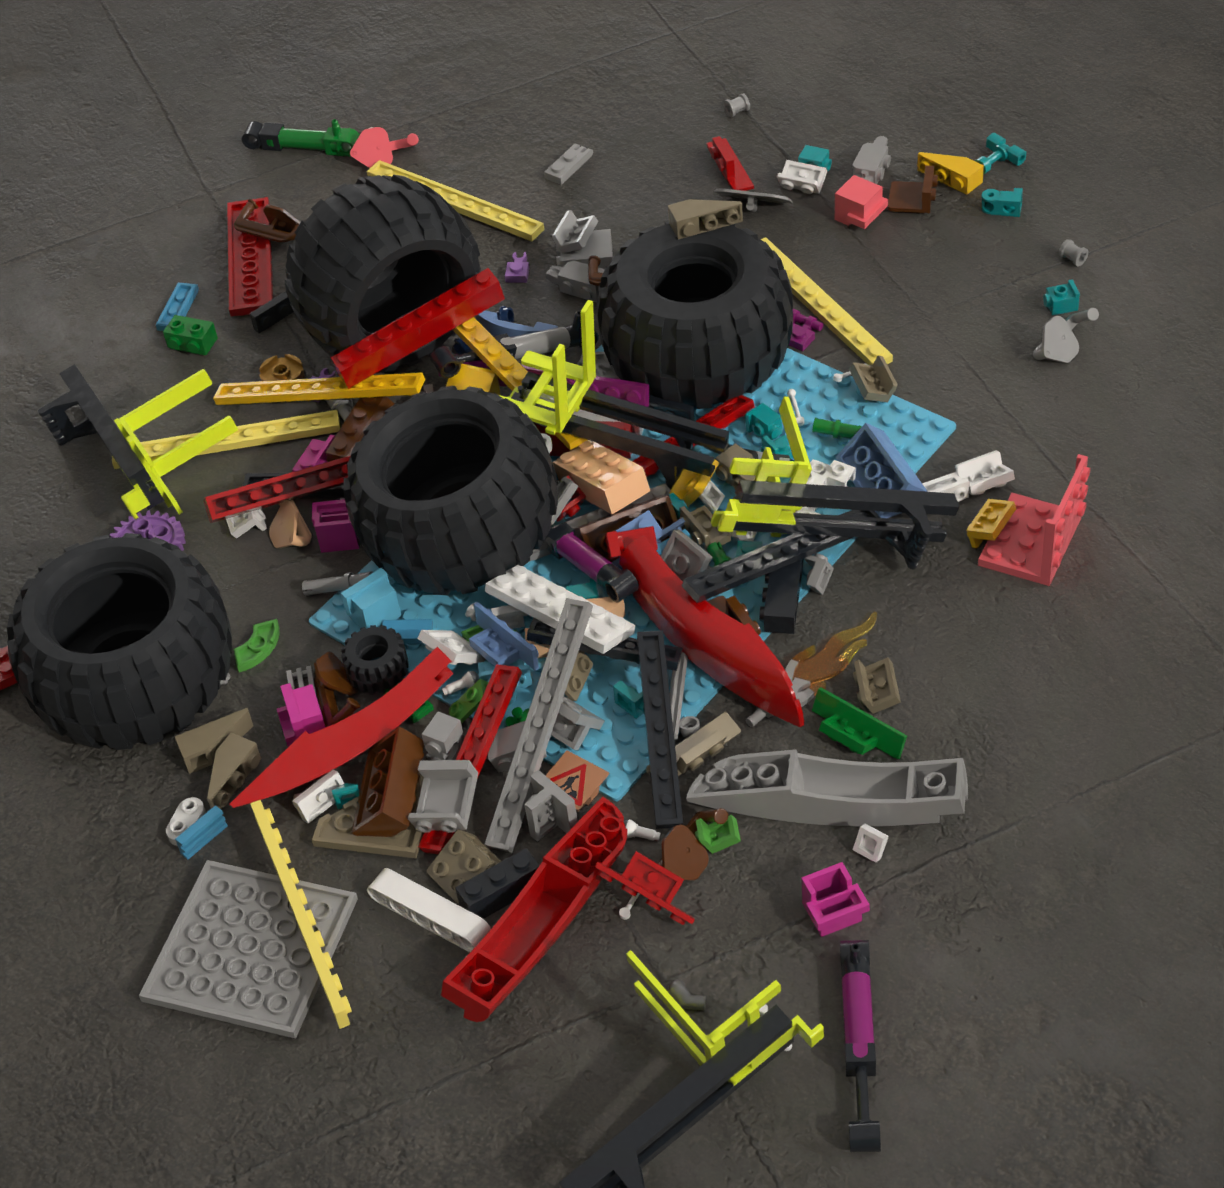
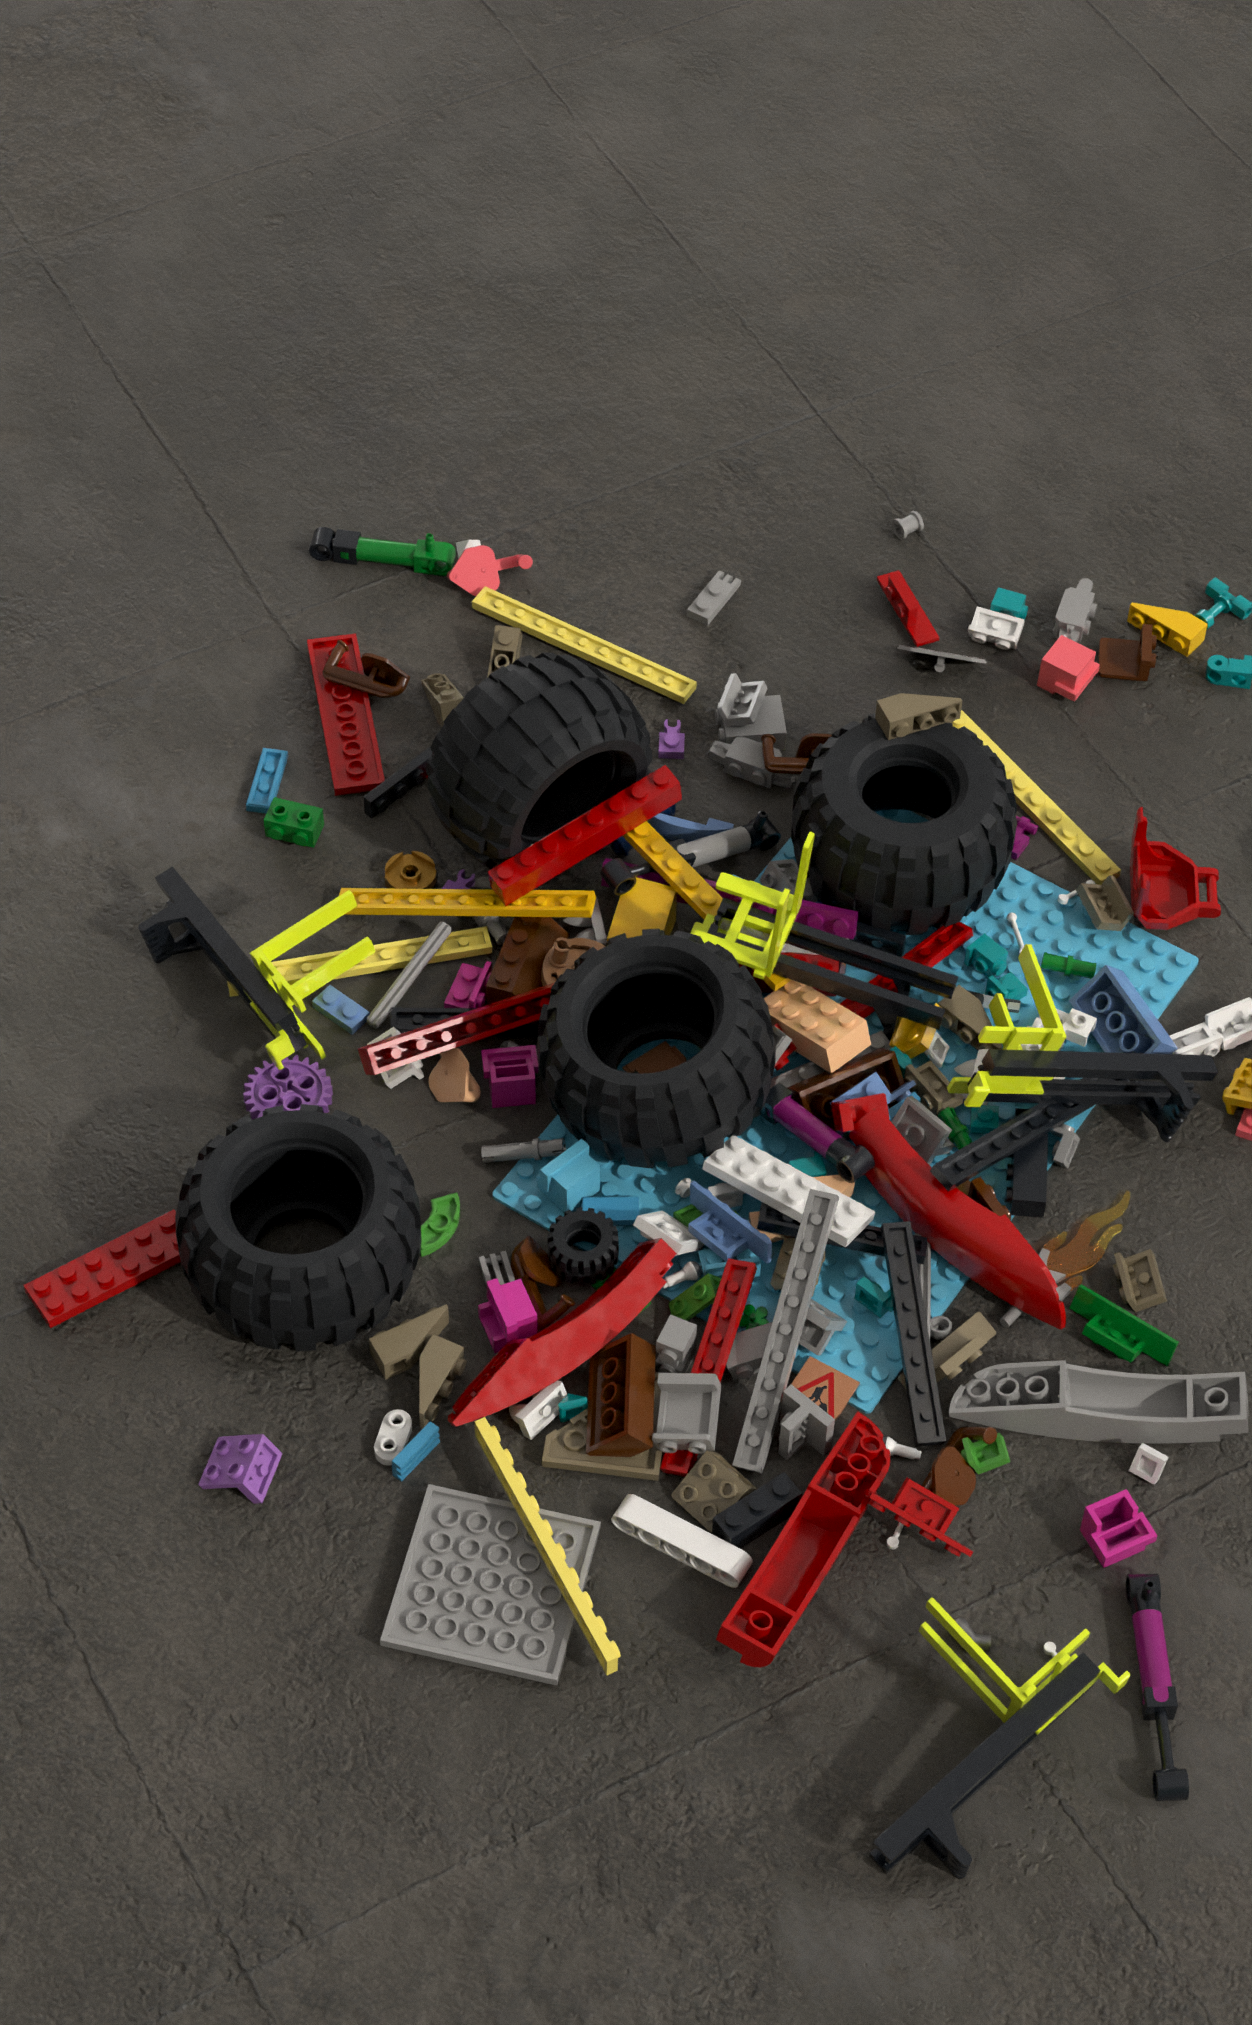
camera: 10 degrees left, 5 degrees up
(49, 844) = (242, 1463): none -> medium lavender bracket
(205, 477) = (340, 1009): none -> medium blue plate
(264, 447) = (409, 975): none -> light grey axle
(931, 361) = (1167, 883): none -> red piece

